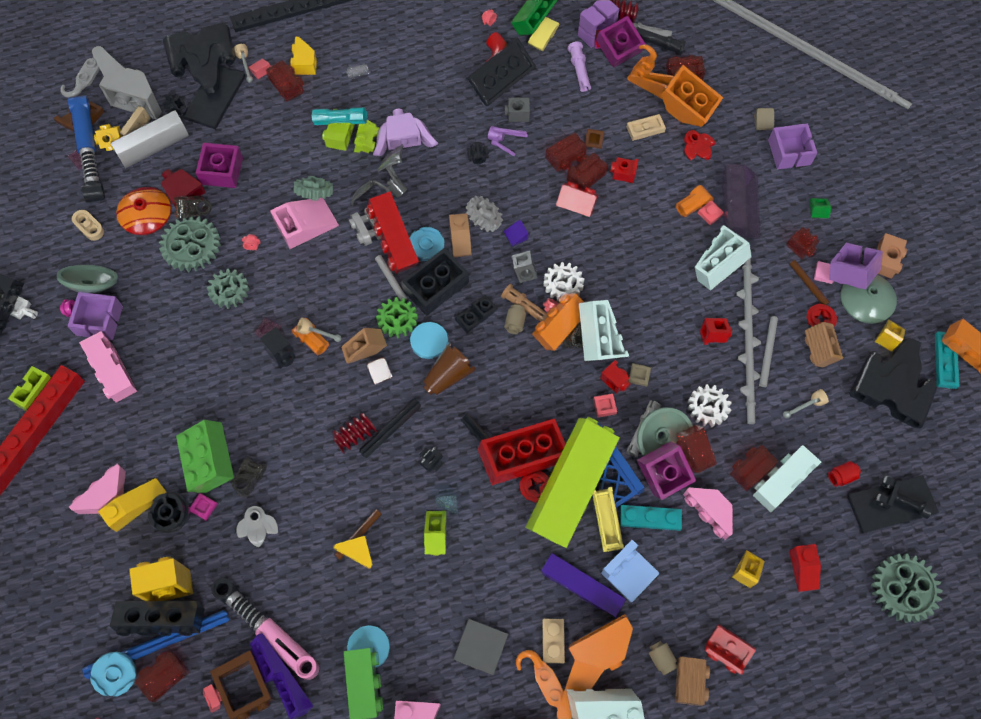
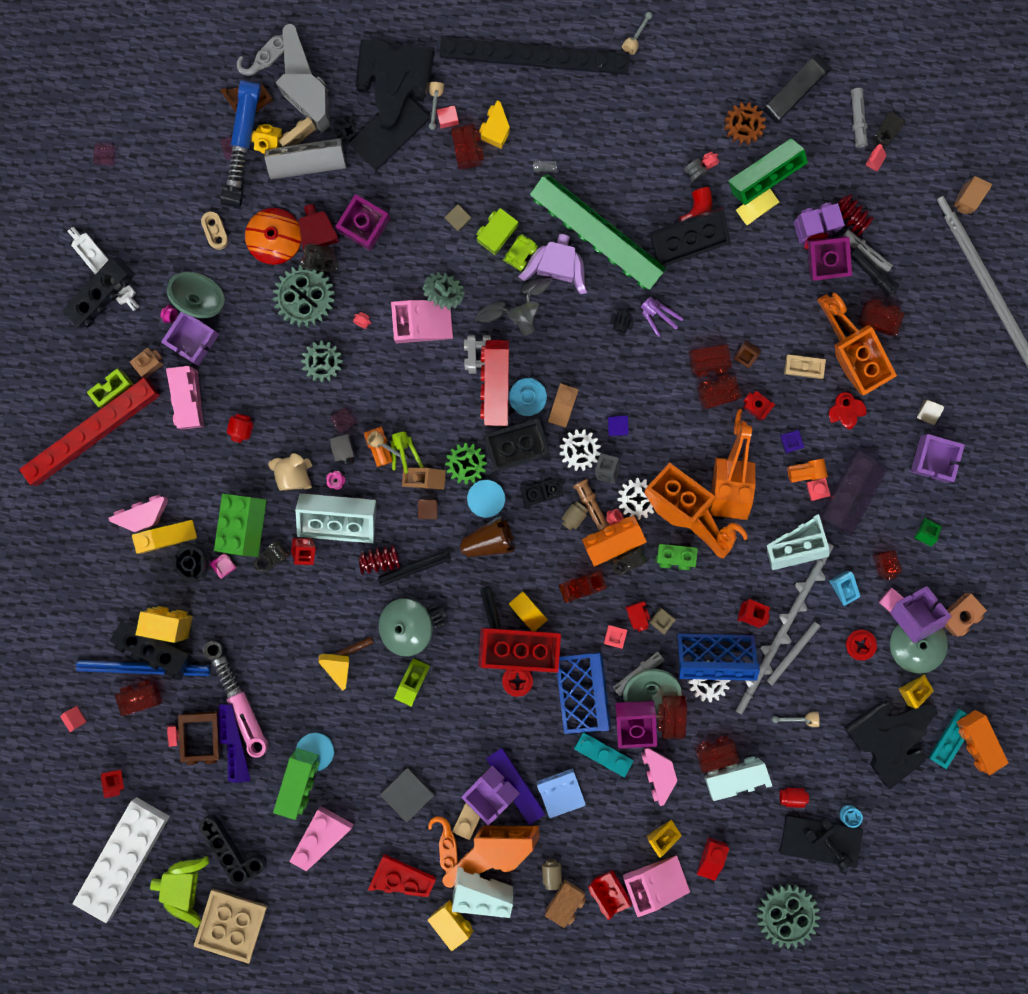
camera: 30 degrees right, 20 degrees up
(61, 354) = (147, 362): none -> medium nougat brick
(113, 674) = (100, 678): medium azure tile -> none
(172, 374) = (240, 427): none -> red head
(236, 388) = (291, 472): none -> tan piece
(256, 529) = (262, 607): light grey plate -> none
(276, 455) = (303, 551): none -> red brick
(282, 378) = (335, 475): none -> dark pink plate
(296, 415) = (336, 518): none -> light aqua slope
(301, 135) = (457, 218): none -> dark tan tile
(330, 325) = (400, 443): none -> lime plant
(351, 115) = (500, 224): teal axle -> none
(391, 279) = (478, 422): light grey bar -> none
(416, 487) = (415, 626): none -> sand green dish
(424, 96) = (597, 231): none -> brick
(448, 503) = (434, 662): clear light blue slope -> none
(481, 27) = (695, 170): none -> dark grey wheel
(484, 213) = (595, 394): light grey gear -> none
(501, 262) = (569, 443): none -> white gear
(513, 417) = (528, 611): none -> yellow slope
(518, 110) = (693, 285): dark grey brick -> none
(554, 372) = (582, 586): none -> clear red brick
(563, 602) = (490, 795): none -> medium lavender piece
(573, 481) = (548, 698): lime brick -> none
(577, 199) = (693, 419): brick -> none
(578, 60) = (776, 255): lavender pin -> none
(599, 332) = (641, 573): light aqua wedge -> none
(607, 520) = (564, 741): light yellow container -> none
(608, 261) = (686, 505): none -> orange slope
(627, 311) = (676, 555): none -> bright green bracket
(637, 232) = (733, 478): none -> orange slope
(667, 186) = (792, 441): none -> dark purple tile
(705, 388) = (718, 668): none -> blue fence
(767, 619) = (656, 885): none -> bright pink slope
(780, 276) = (845, 587): none -> medium azure slope
(809, 283) = (871, 605): reddish brown bar -> none
(823, 344) = (844, 674): medium nougat brick -> none
(908, 464) = (850, 819): none -> medium azure wheel

